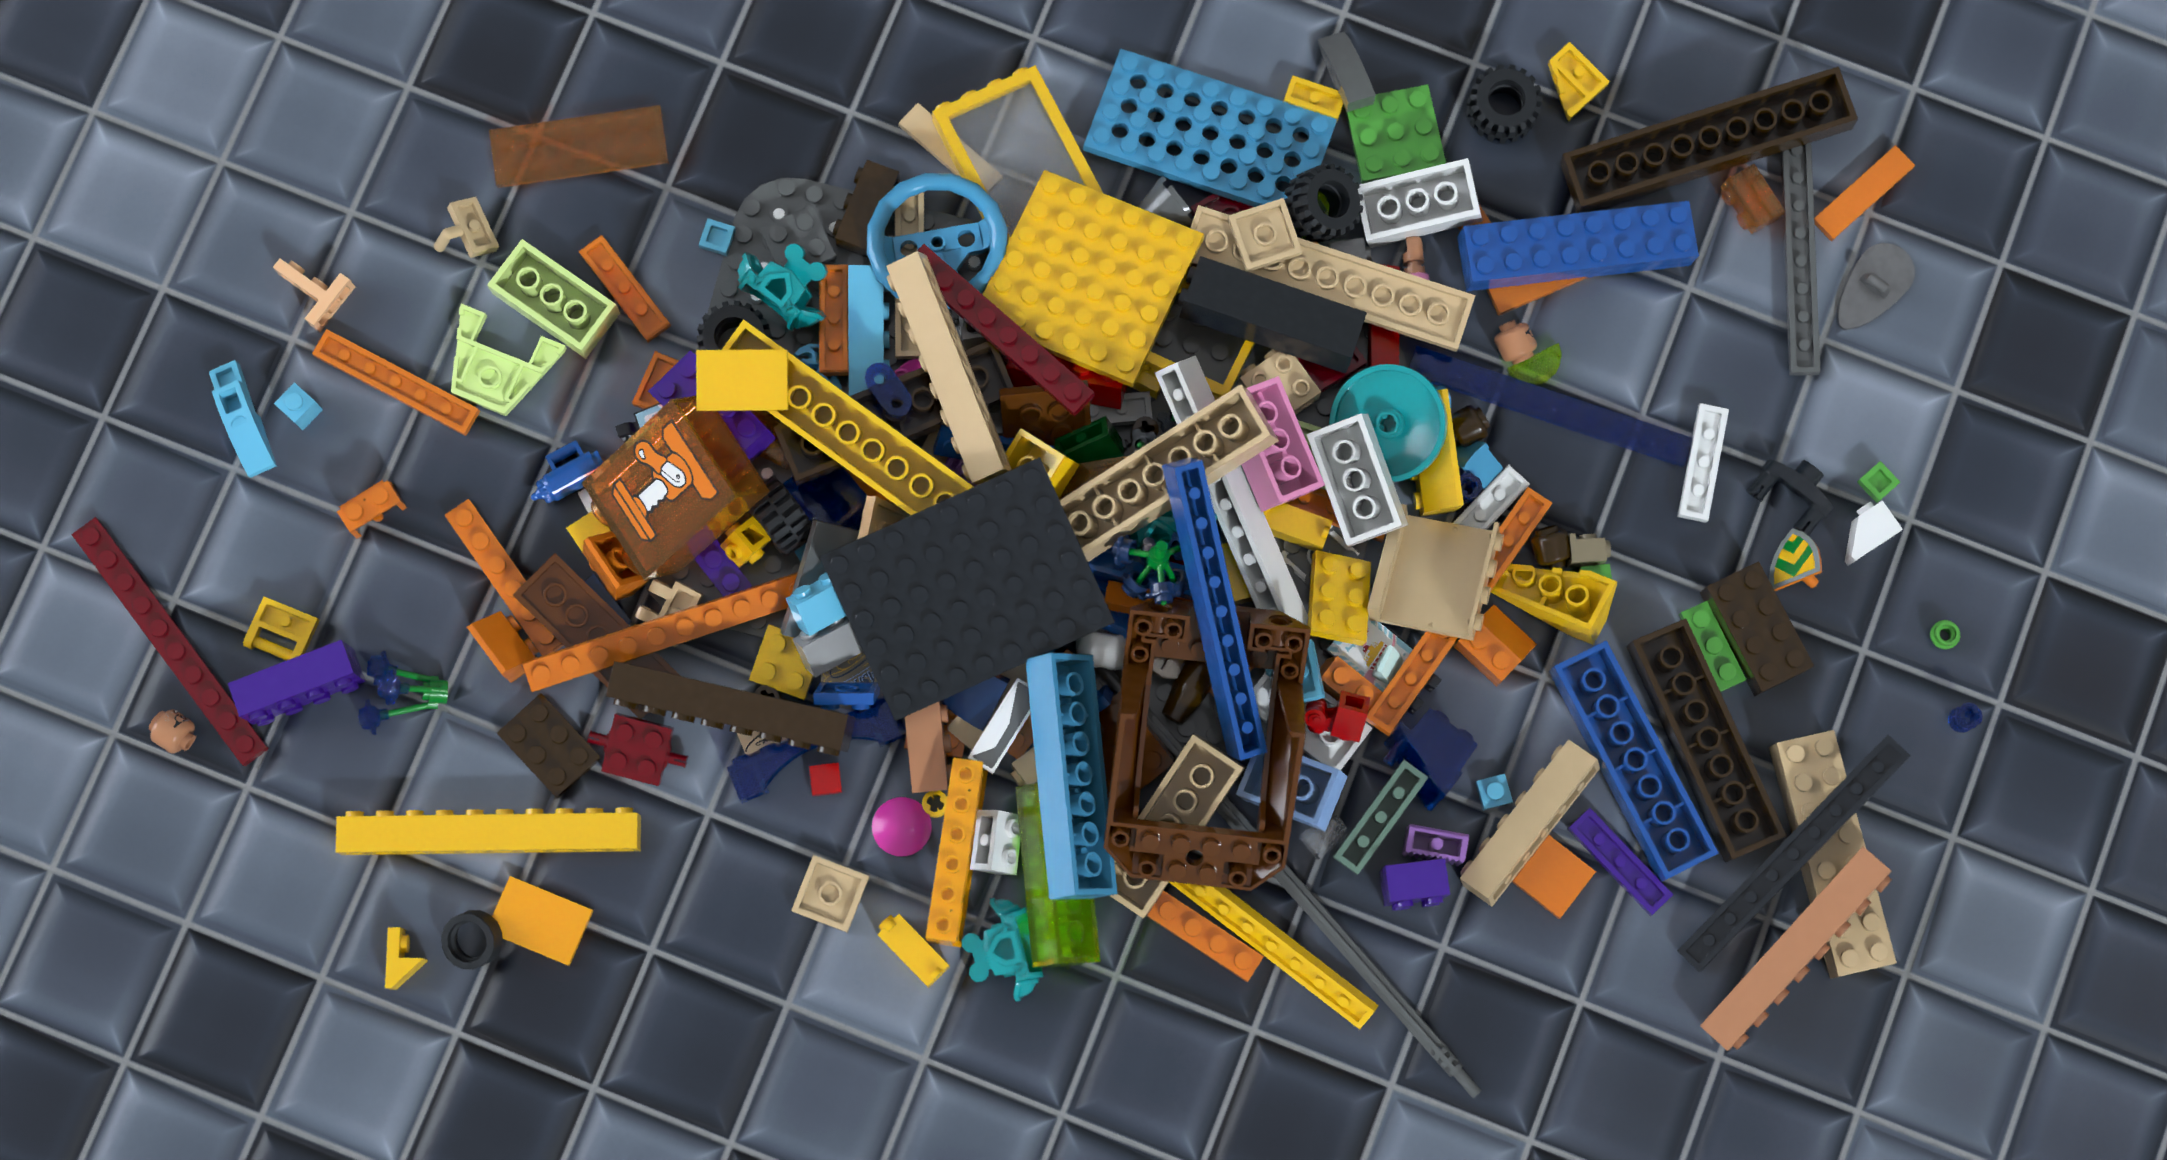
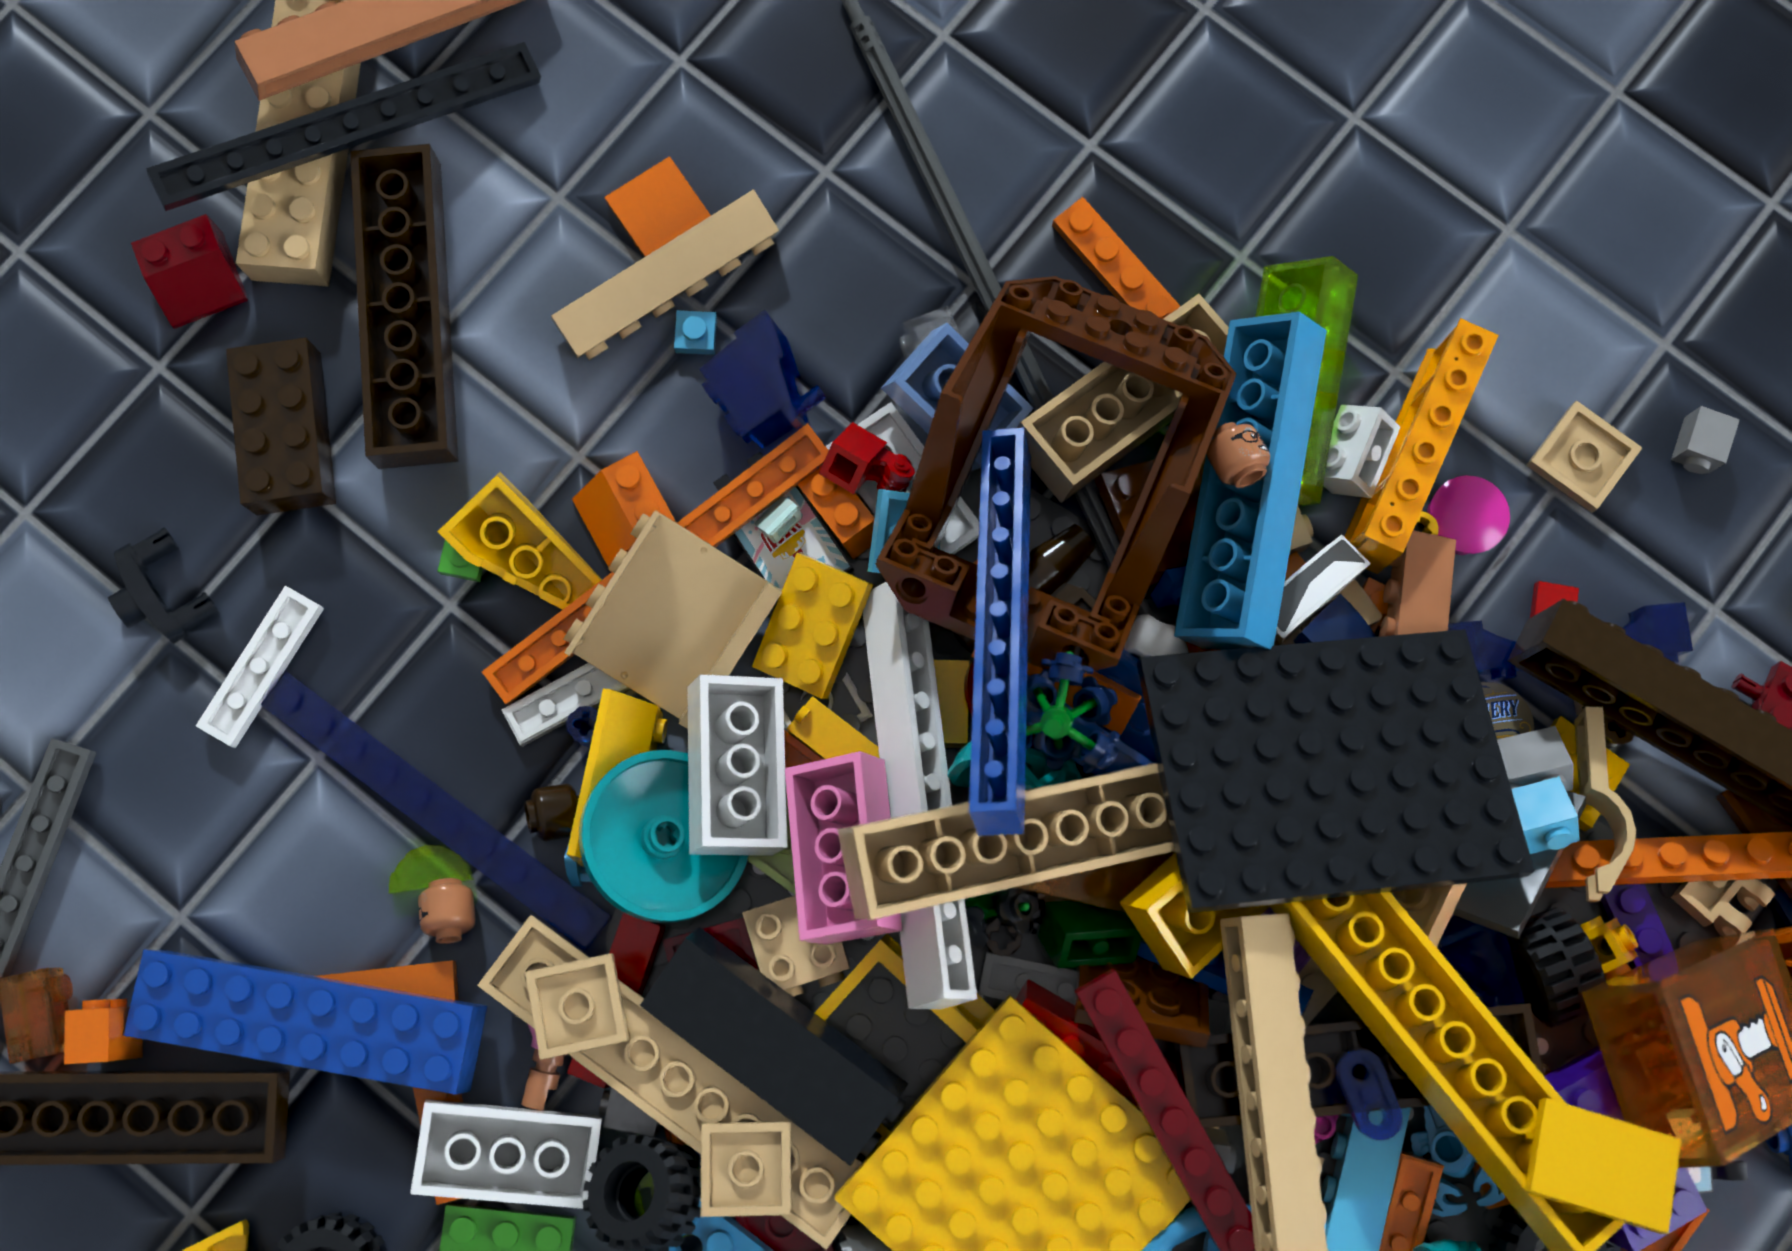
camera: 160 degrees left, 0 degrees up
(746, 930) = (1705, 440): none -> light grey brick
(778, 645) = (1595, 786): none -> tan piece
(857, 694) = (1522, 691): blue plate -> none
(912, 949) = (1509, 370): yellow brick -> none
(1005, 949) = (1381, 323): teal piece -> none
(1089, 778) = (1238, 454): none -> nougat head
(1282, 951) = (1012, 197): yellow plate -> none
(1380, 817) = (854, 331): sand green brick -> none
(1406, 299) = (576, 1006): none -> tan plate
(1414, 883) = (838, 238): dark purple brick -> none
(1435, 844) = (794, 280): medium lavender brick -> none
(1479, 461) = (559, 757): dark azure tile -> none
(1551, 546) = (504, 614): dark brown head -> none
(1588, 550) = (460, 595): dark tan brick -> none
(1620, 861) = (570, 200): dark purple plate -> none
(1633, 761) = (506, 309): blue brick -> none
(1704, 196) = (98, 1032): none -> orange brick
(1714, 646) = (346, 428): bright green plate -> none
(1795, 561) = (193, 496): shield -> none
(1866, 720) = (190, 270): none -> dark red slope
(1870, 530) = (81, 506): white slope -> none
(1878, 482) = (41, 570): bright green plate -> none
(1952, 630) = (38, 344): bright green plate -> none
(1959, 724) = (64, 238): clear blue bush -> none

